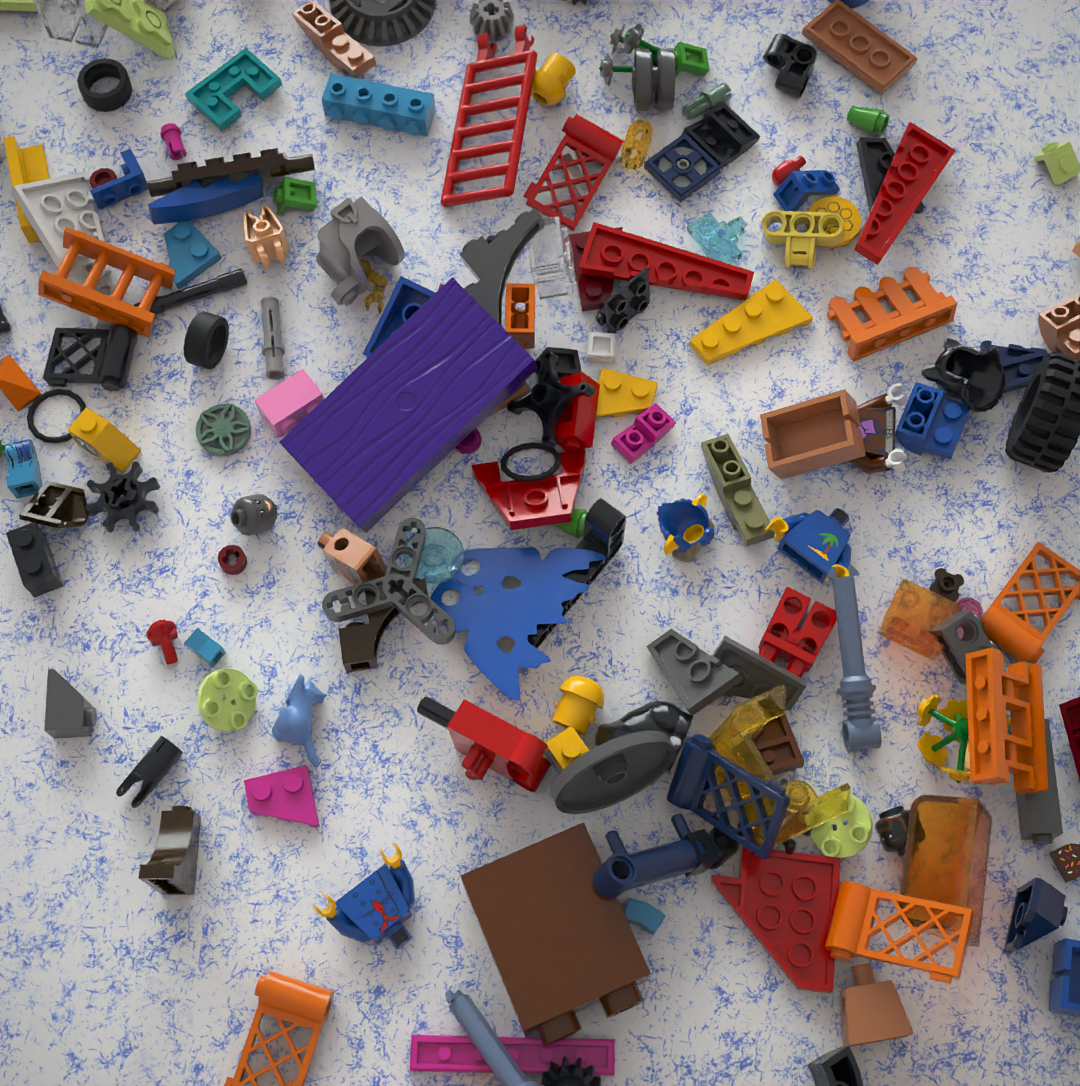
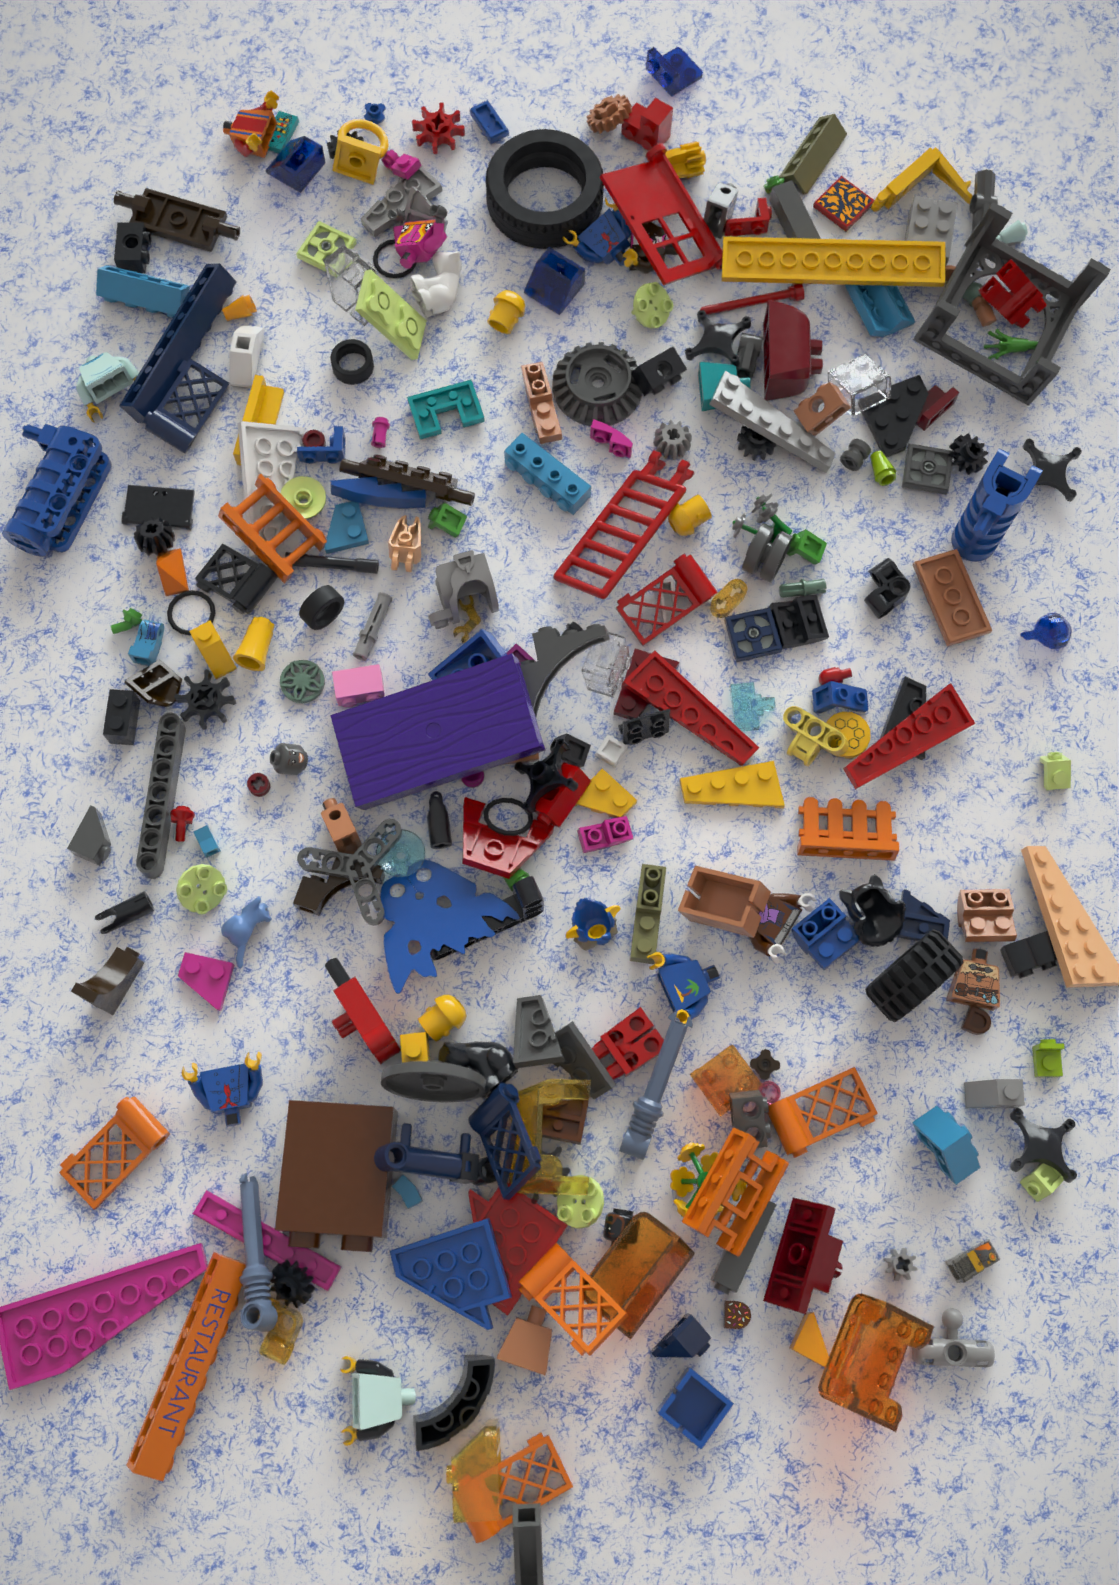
camera: 25 degrees right, 5 degrees up
(127, 231) = (308, 489): none -> yellowish green dish
(128, 635) = (165, 805): none -> dark grey beam
(150, 414) = (255, 644): none -> yellow plant
(437, 43) = (618, 442): none -> dark pink slope
(457, 504) = (438, 823): none -> black piece
(520, 323) = (554, 704): orange torso -> none
(749, 971) = (457, 1270): none -> blue wing
(870, 120) = (923, 664): bright green cone -> none
(973, 34) = (1051, 631): none -> clear blue hat

